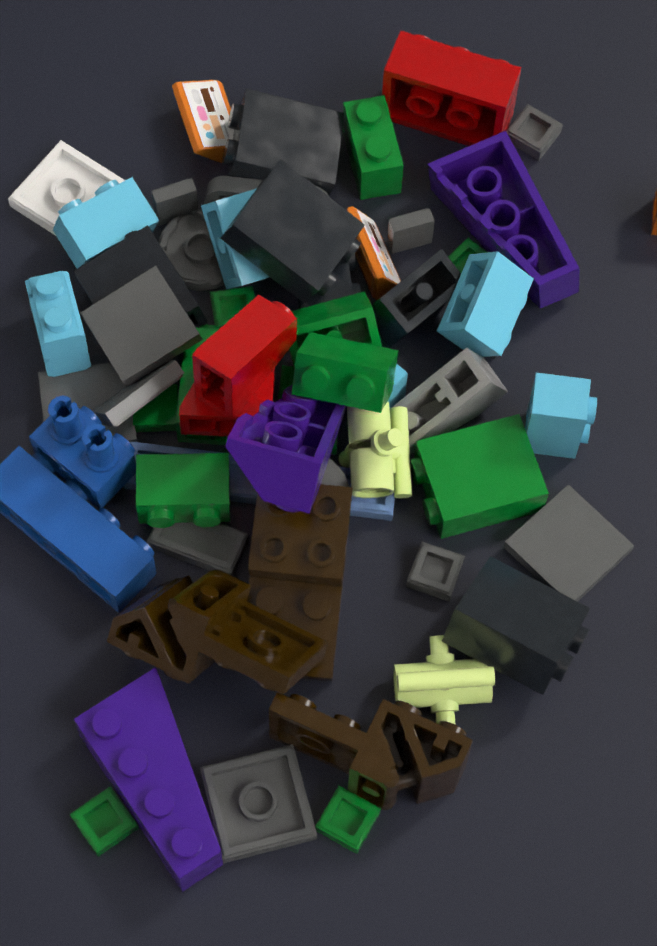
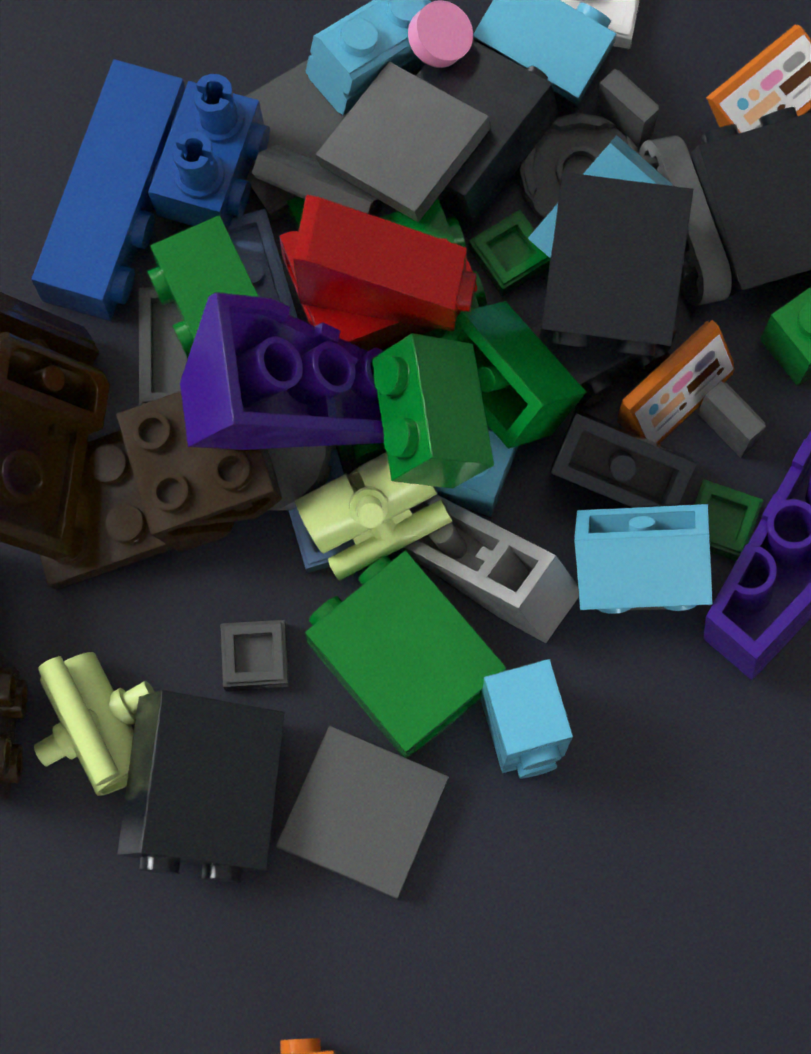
camera: 70 degrees right, 10 degrees up
(79, 273) = (440, 34): none -> bright pink tile

